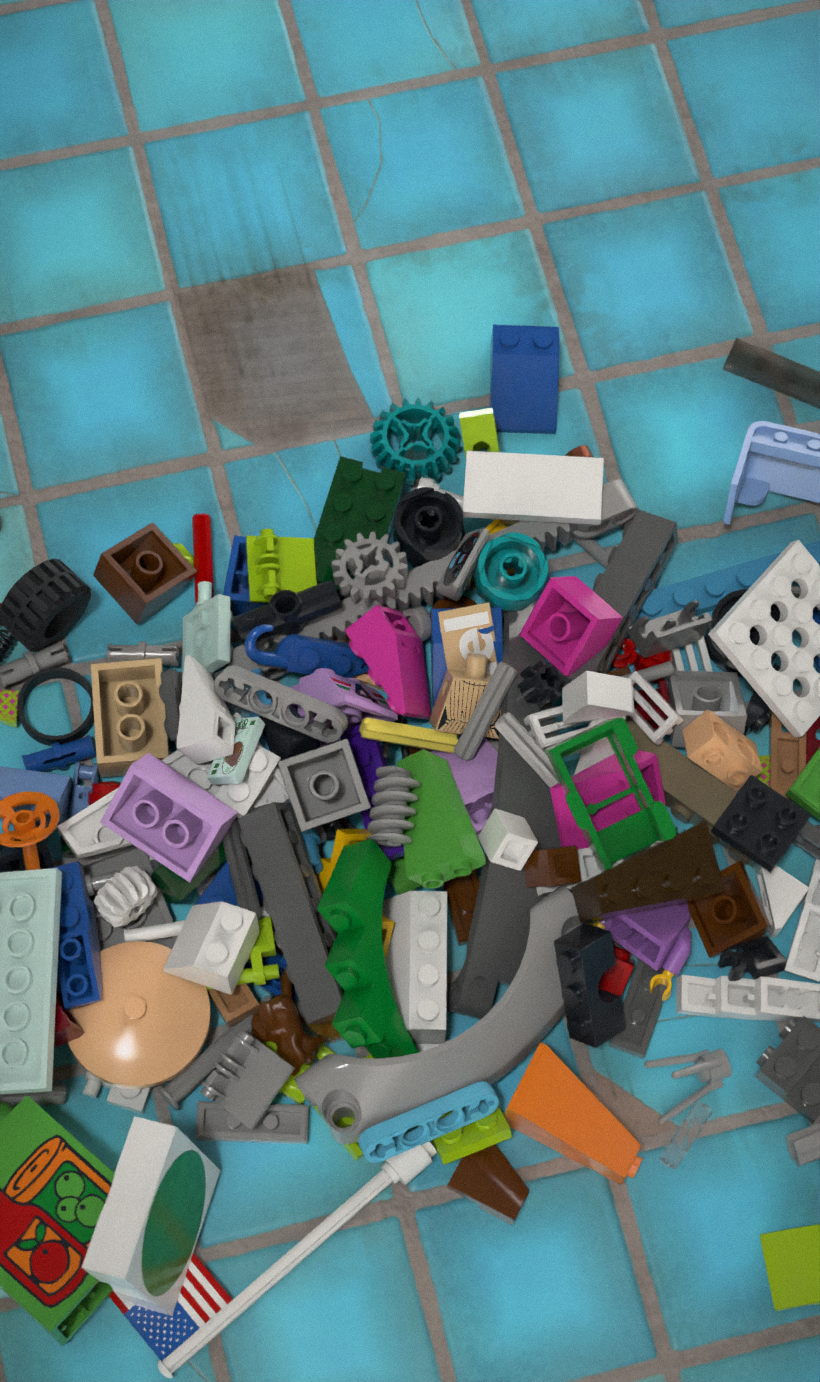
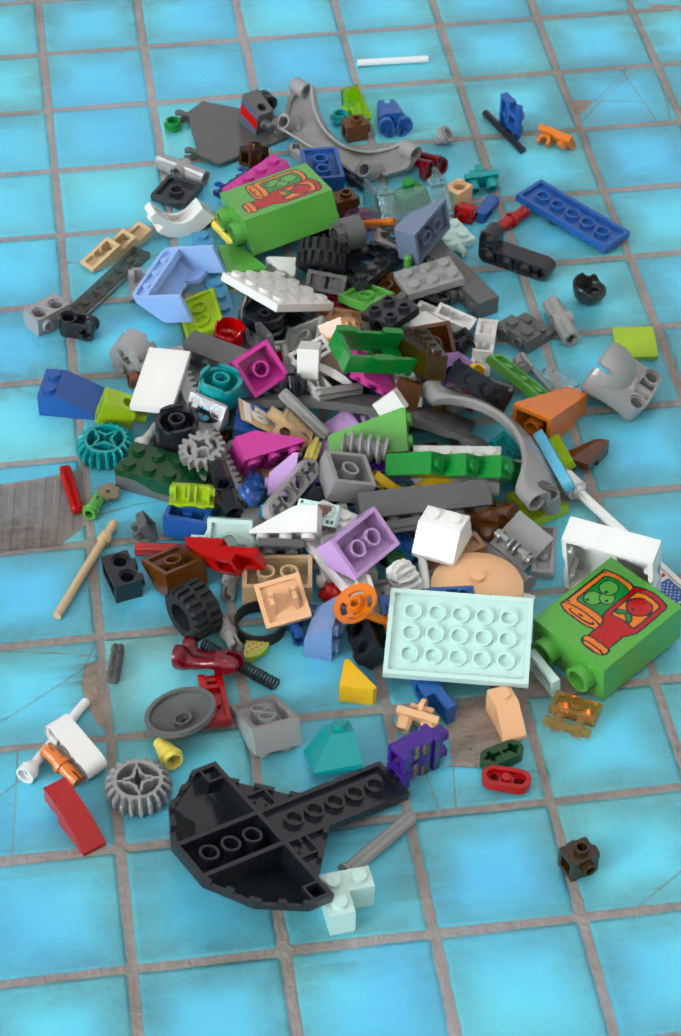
camera: 80 degrees left, 25 degrees down
(64, 724) = (282, 601): none -> light nougat plate
(130, 498) = (122, 576): none -> black brick
(148, 623) = (226, 558): none -> red slope
(218, 471) = (103, 540): none -> tan bar
(242, 521) = (144, 527): none -> dark grey tile
(282, 446) = (91, 510): none -> bright green pin
(317, 455) = (109, 491): none -> dark tan plant
(320, 411) = (71, 489): none -> red axle
(624, 444) = (130, 351): none -> light grey brick
(653, 1071) = (515, 375): none -> bright green tile
(666, 1235) = (627, 385): none -> light grey piece
(686, 579) = (230, 330): none -> red hair
(694, 364) = (75, 325): none -> black piece
(719, 307) = (44, 314): none -> light grey brick
(751, 539) = (204, 310): none -> lime tile

